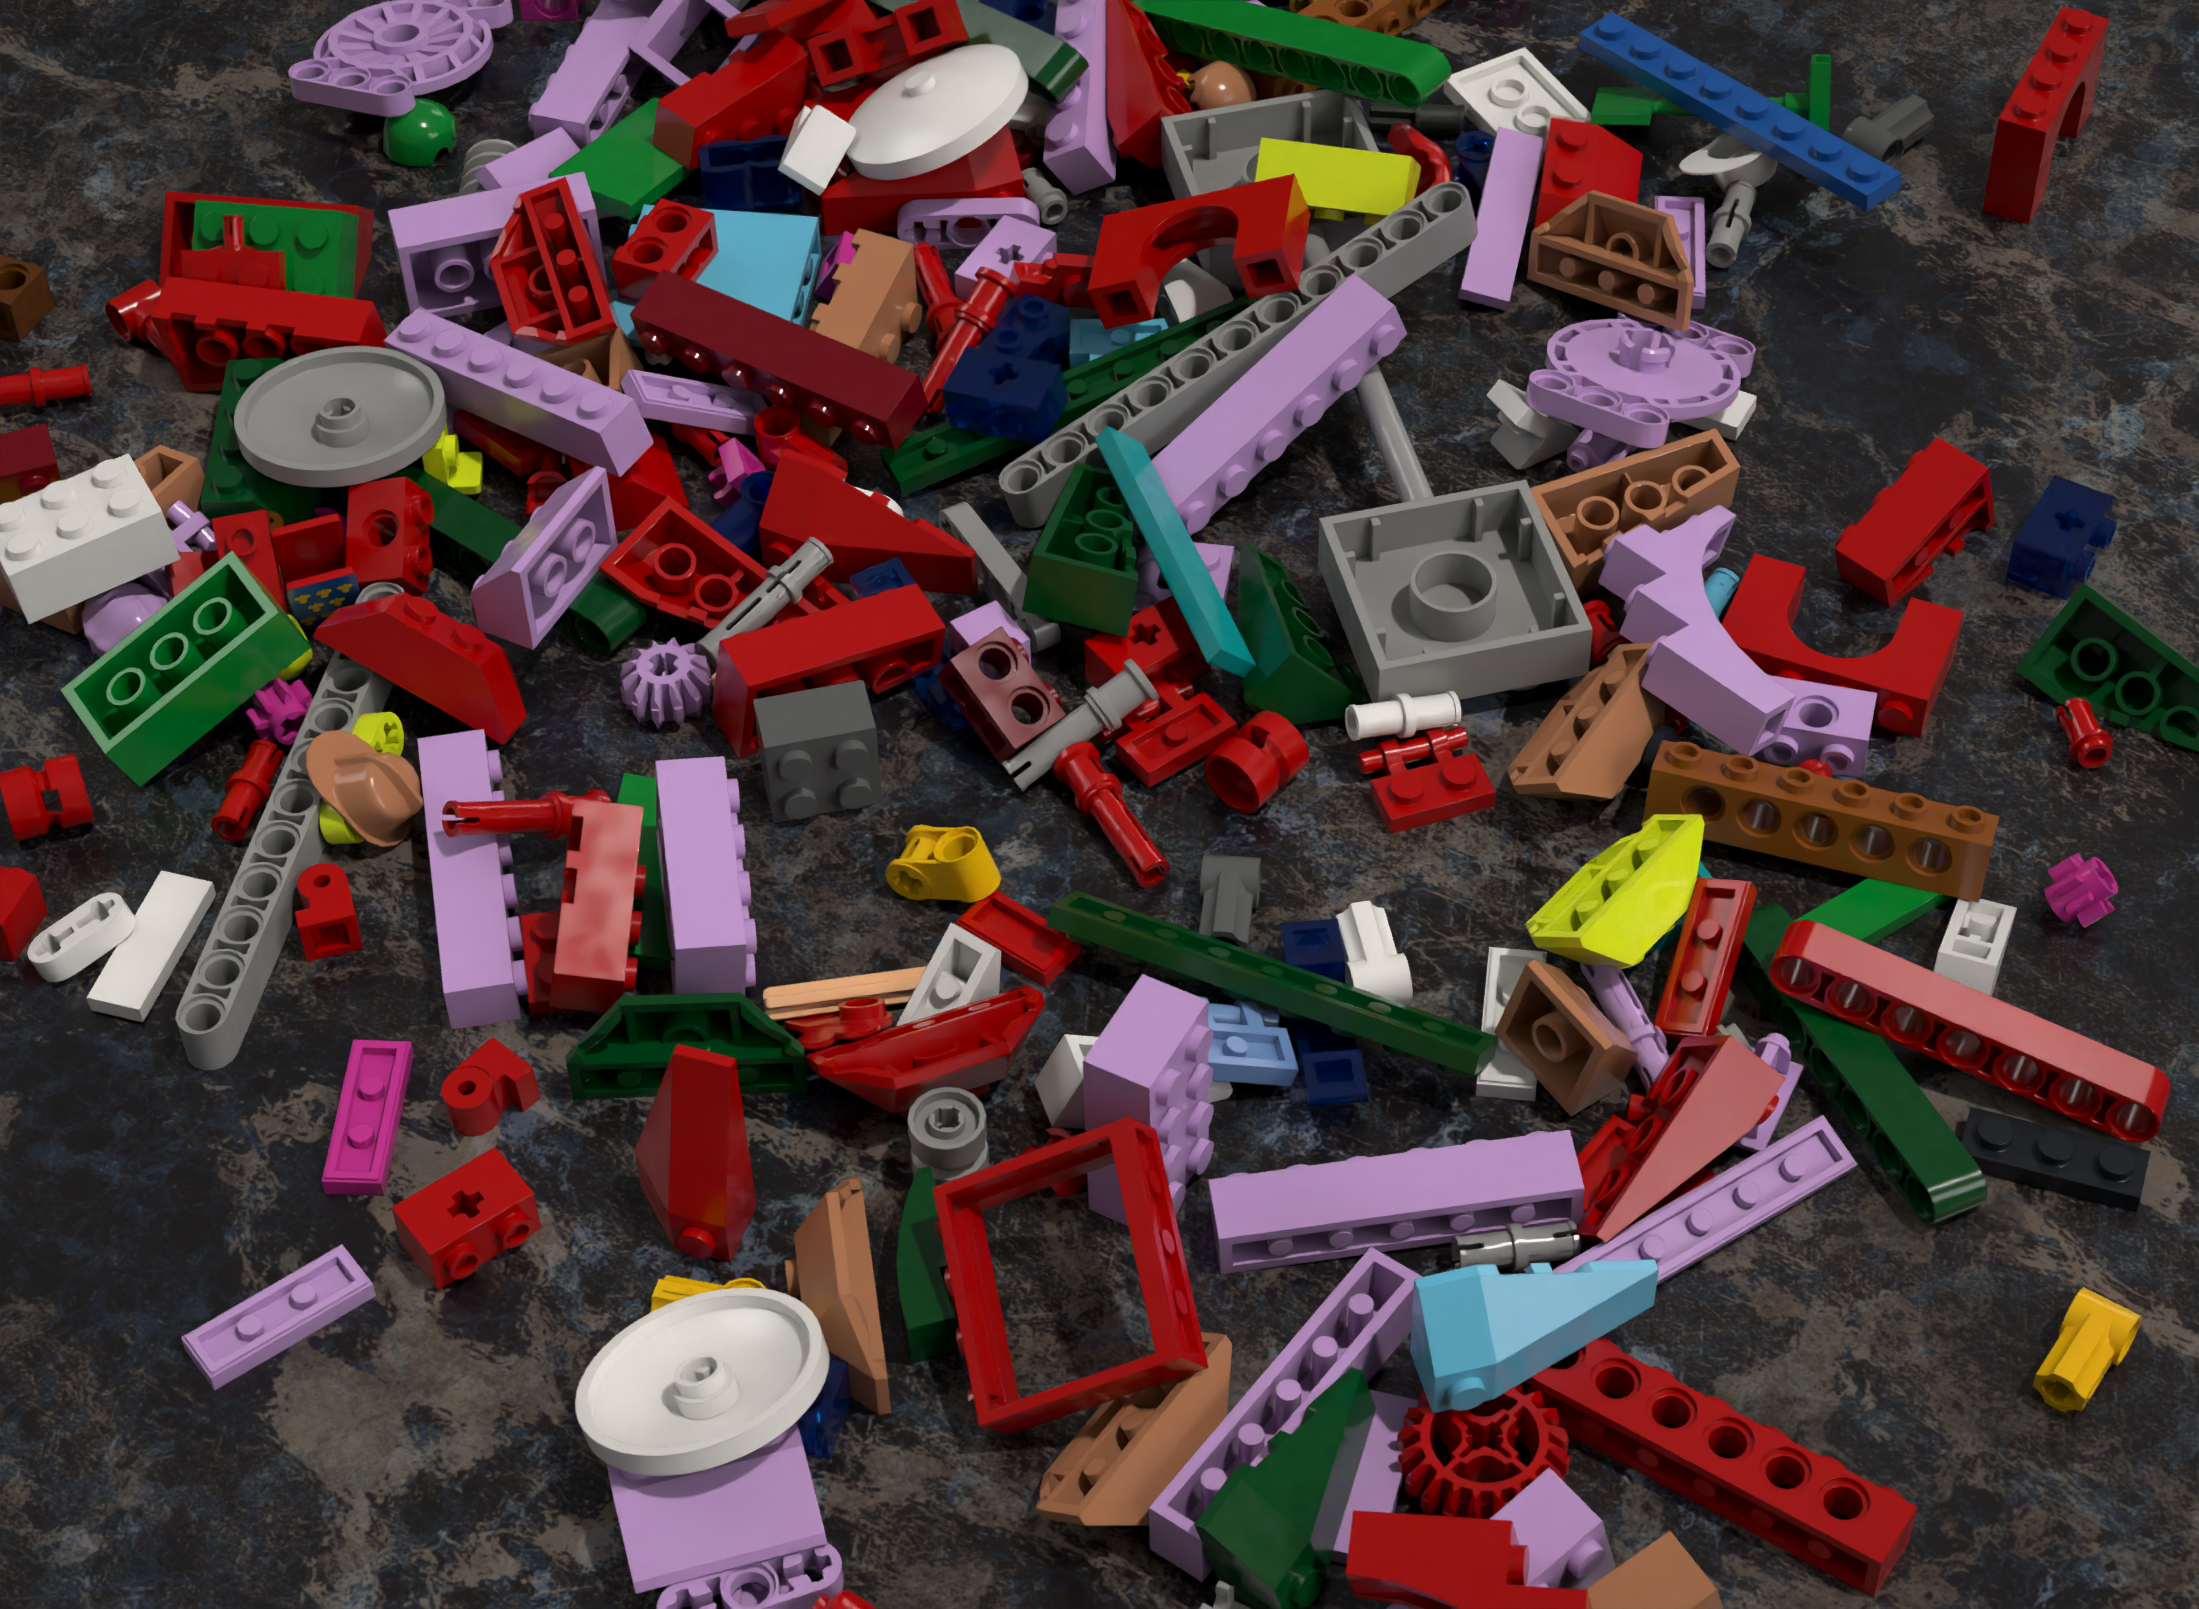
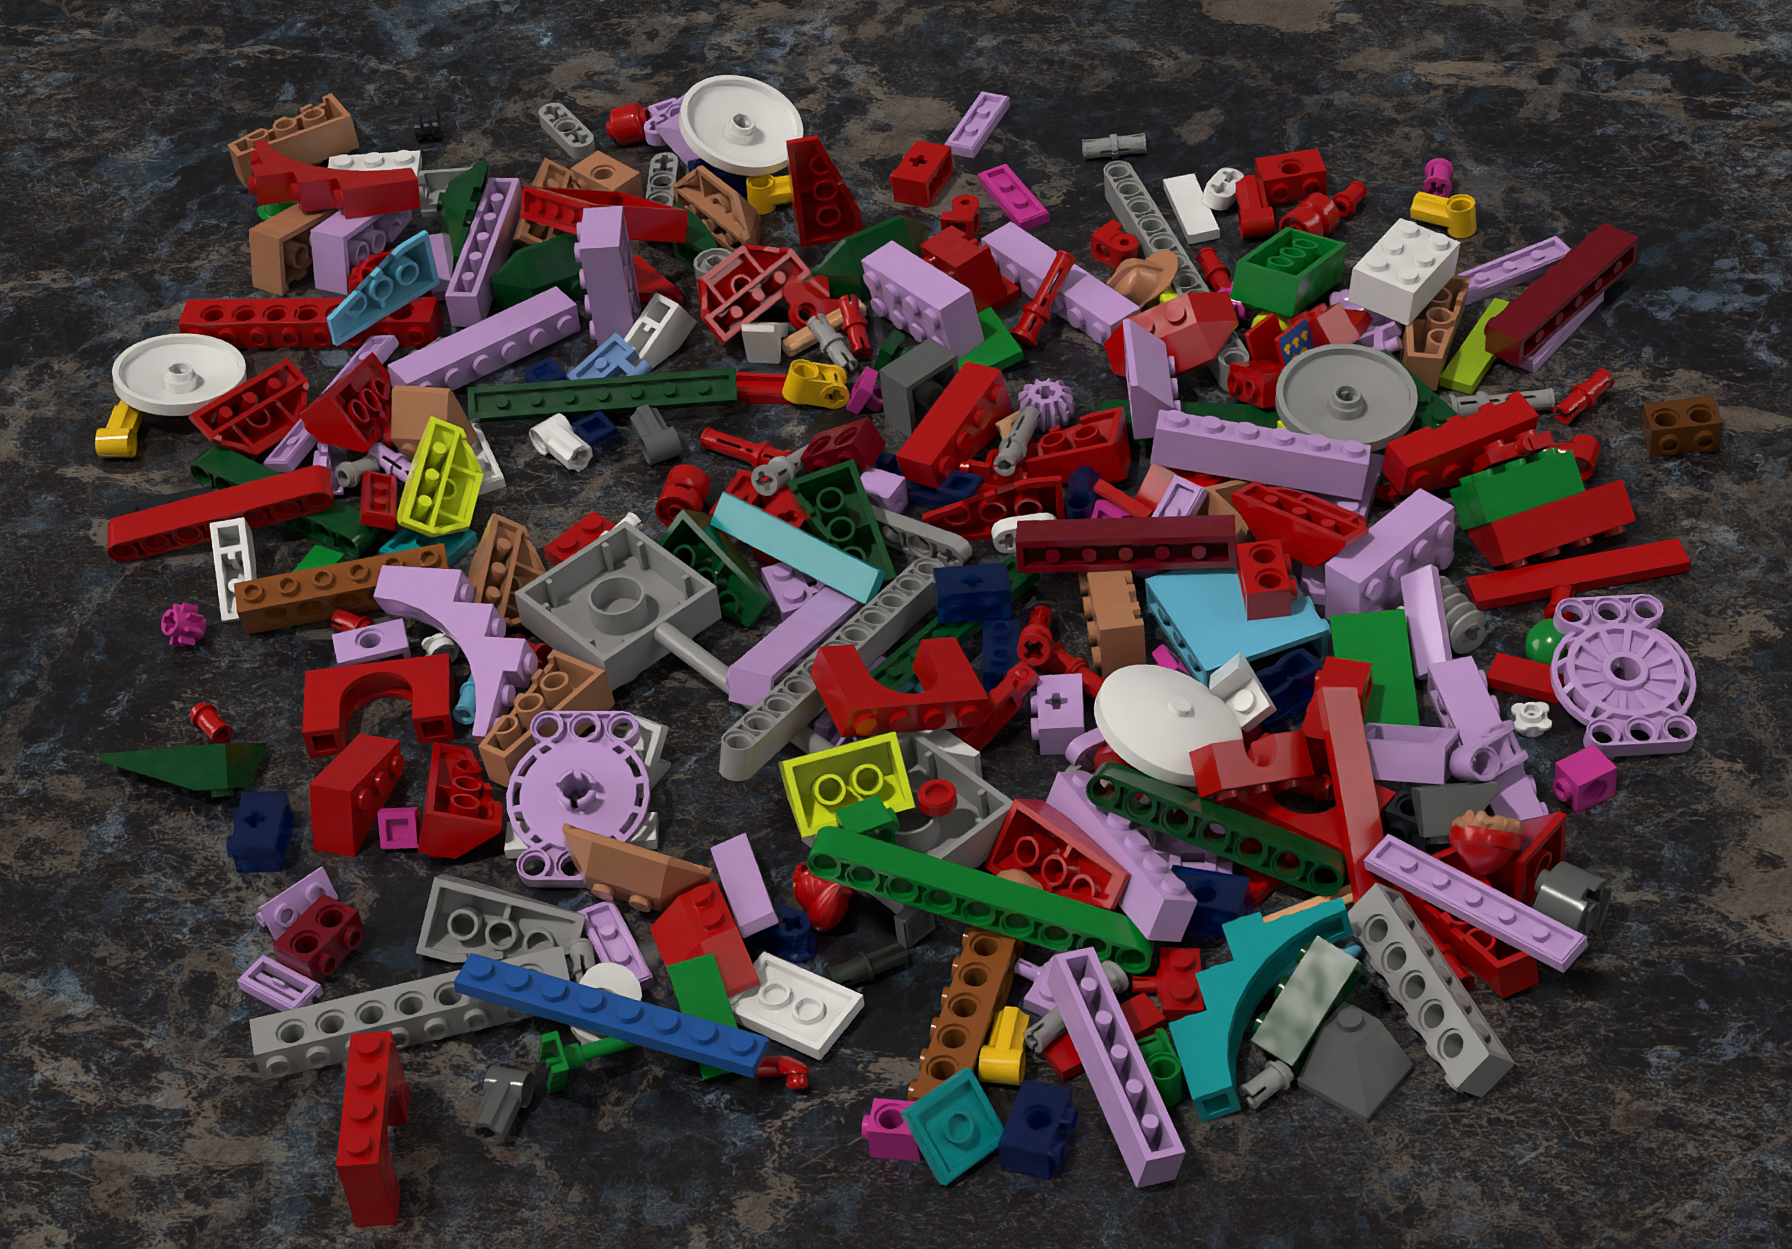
camera: 155 degrees right, 5 degrees down
(90, 860) = (1254, 214): none -> red piece
(135, 1129) = (1114, 146): none -> light grey pin
(156, 425) = (1468, 405): none -> light grey pin
(219, 175) = (1580, 572): none -> red tile
(374, 157) = (1558, 593): none -> red pin
(482, 114) = (1522, 677): none -> red tile
(527, 75) = (1531, 718): none -> white plate
(703, 476) = (1121, 500): none -> red tile
(798, 874) = (891, 350): none -> dark green tile
(812, 944) = (855, 327): none -> red pin
(867, 930) = (832, 343): none -> light grey pin
(883, 827) = (865, 393): none -> dark pink tile
(892, 1436) = (659, 177): none -> light grey beam
(982, 1533) = (607, 174): none -> nougat brick
(1054, 1242) = (649, 279): none -> red tile
(1233, 1294) = (538, 270): none -> dark green wedge
(1241, 144) = (937, 798): none -> red tile
(1349, 118) = (869, 819): none -> green brick
(1563, 65) = (785, 1066): none -> red arm
(1793, 460) = (456, 804): none -> red wedge
(1827, 323) = (491, 922): none -> light grey wedge
(1856, 1233) = (256, 412): none -> red wedge
(1873, 467) = (398, 828): none -> dark pink tile
(1949, 1394) = (177, 373): none -> white dish
(1951, 255) = (411, 1010): none -> light grey brick
(2025, 441) = (293, 902): none -> lavender hinge
(2032, 376) = (320, 938): none -> dark red brick
(2089, 367) = (274, 990): none -> lavender tile

